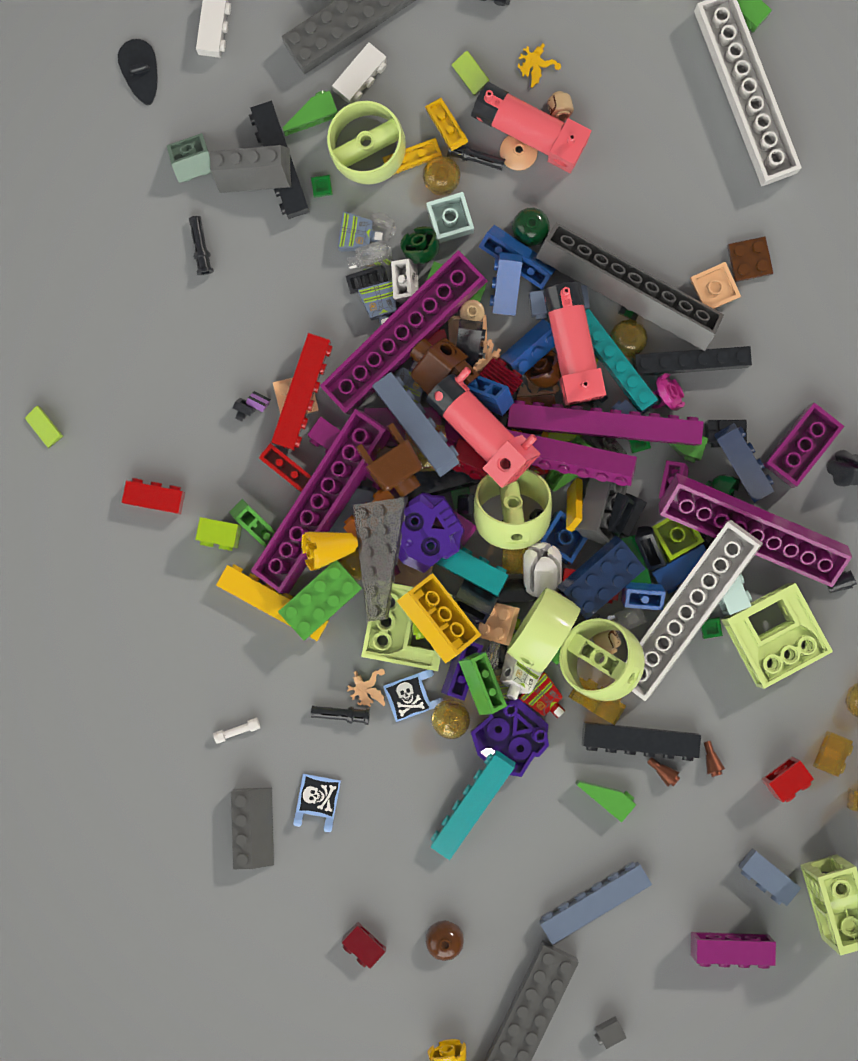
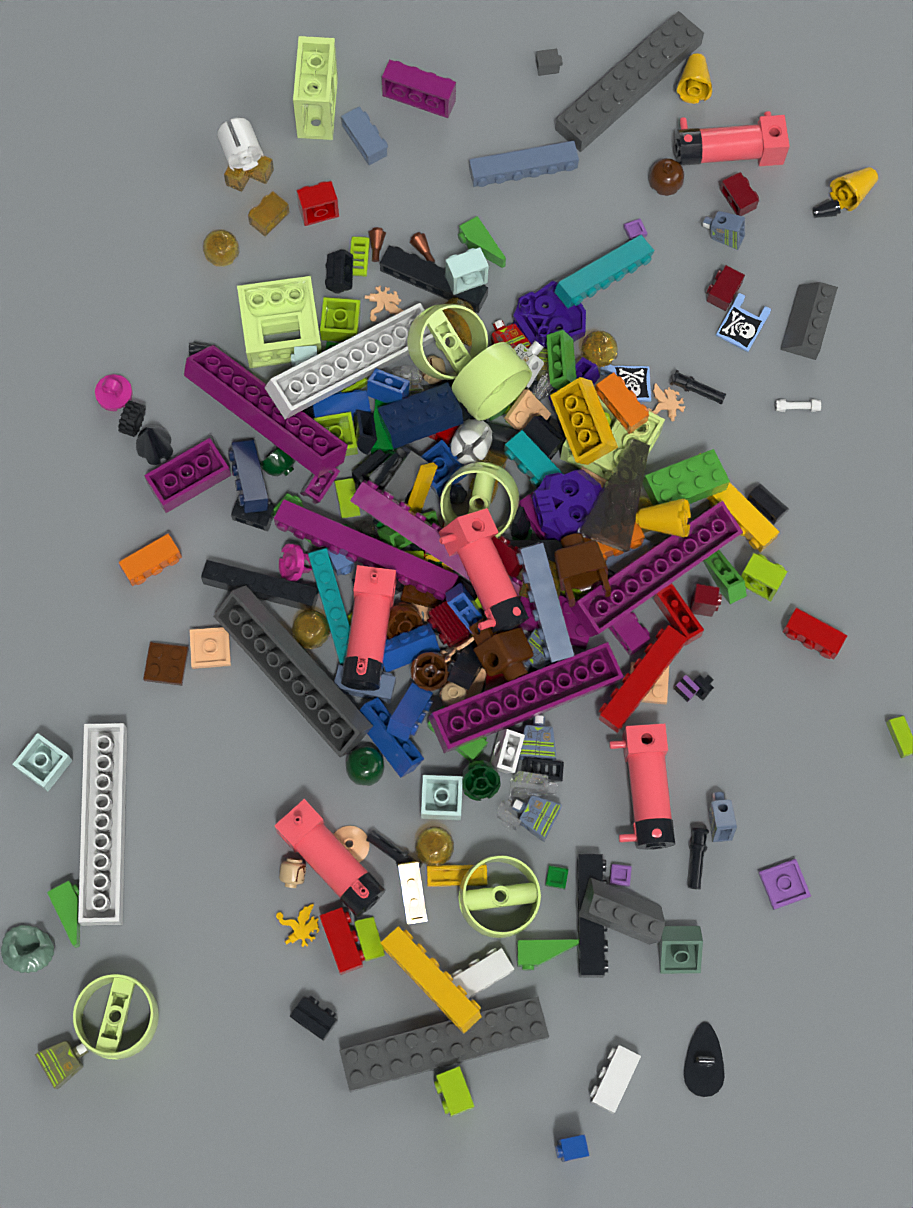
camera: 165 degrees left, 15 degrees down
(114, 250) = (784, 884): none -> medium lavender tile
(184, 280) = (722, 818): none -> sand blue torso
(236, 616) = (767, 504): none -> black brick
(248, 993) = (853, 187): none -> yellow cone
(264, 291) = (649, 786): none -> coral piece
(265, 207) = (620, 875): none -> medium lavender tile
(266, 490) = (705, 600): none -> dark red brick
(269, 961) = (827, 209): none -> black cone
(346, 833) = (725, 287): none -> dark red brick
(358, 896) = (726, 228): none -> sand blue torso
(388, 1000) = (764, 141): none -> coral piece
(402, 49) = (431, 979): none -> yellow brick
(408, 656) = (622, 402): none -> orange brick
(457, 869) = (634, 229): none -> medium lavender tile
(494, 61) = (342, 940): none -> red brick
(502, 330) = (430, 671): none -> reddish brown cylinder
(611, 749) = (466, 270): none -> light aqua brick
(644, 480) = (344, 491): none -> lime slope
(684, 701) = (383, 300): none -> light nougat piece
(717, 660) = (340, 319): none -> lime brick
(724, 756) = (360, 244): none -> lime slope
(737, 713) = (339, 271): none -> black brick
(804, 351) = (150, 560): none -> orange brick
(825, 124) = (42, 762): none -> light aqua brick

